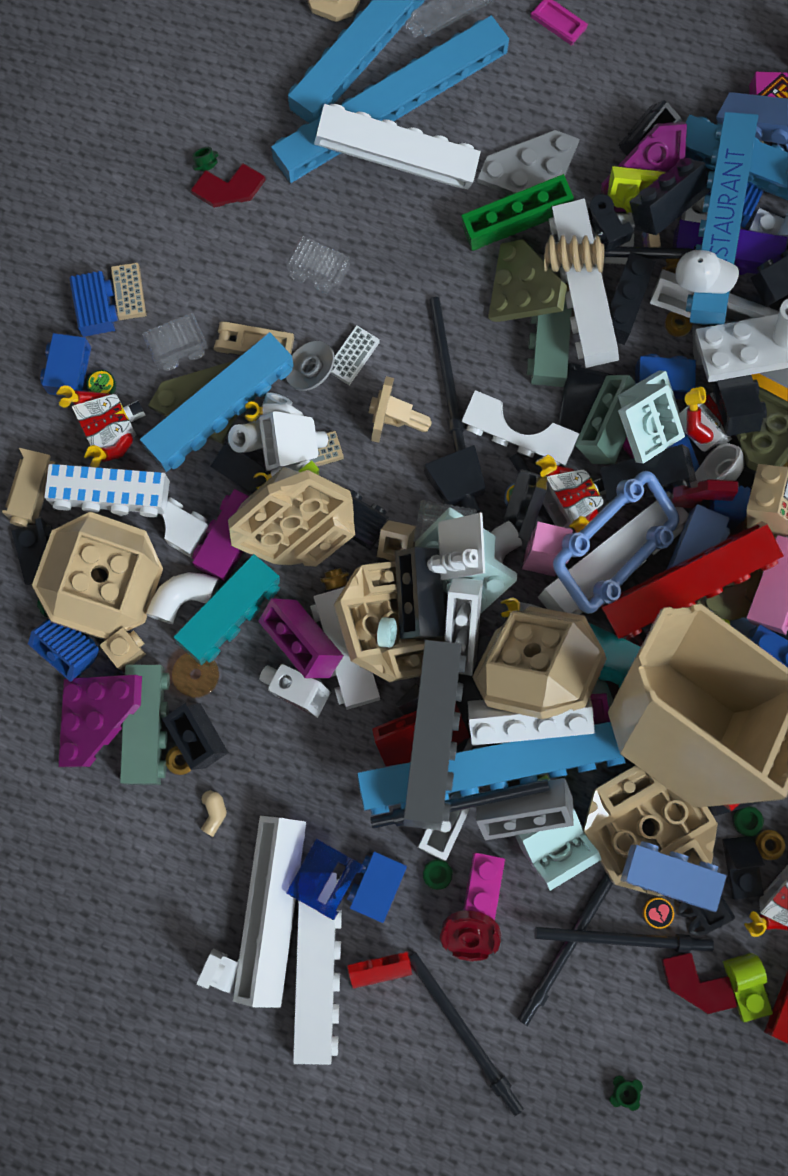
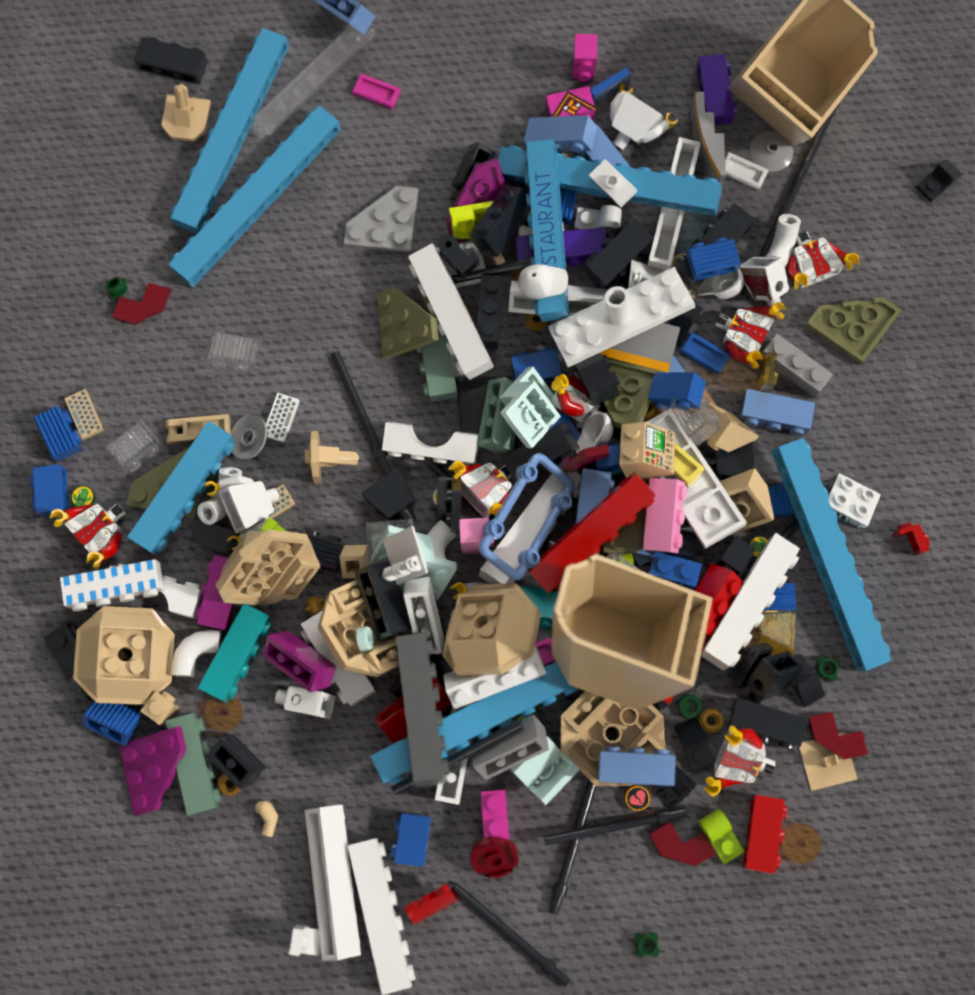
camera: 10 degrees left, 0 degrees up
(28, 488) = (48, 599): tan window -> none
(315, 874) = (360, 842): clear blue plate -> none
(396, 146) = (270, 237): white brick -> none
(437, 874) = (457, 816): dark green tile -> none
(515, 212) = (381, 266): green brick -> none
(574, 253) = (435, 294): tan piece -> none

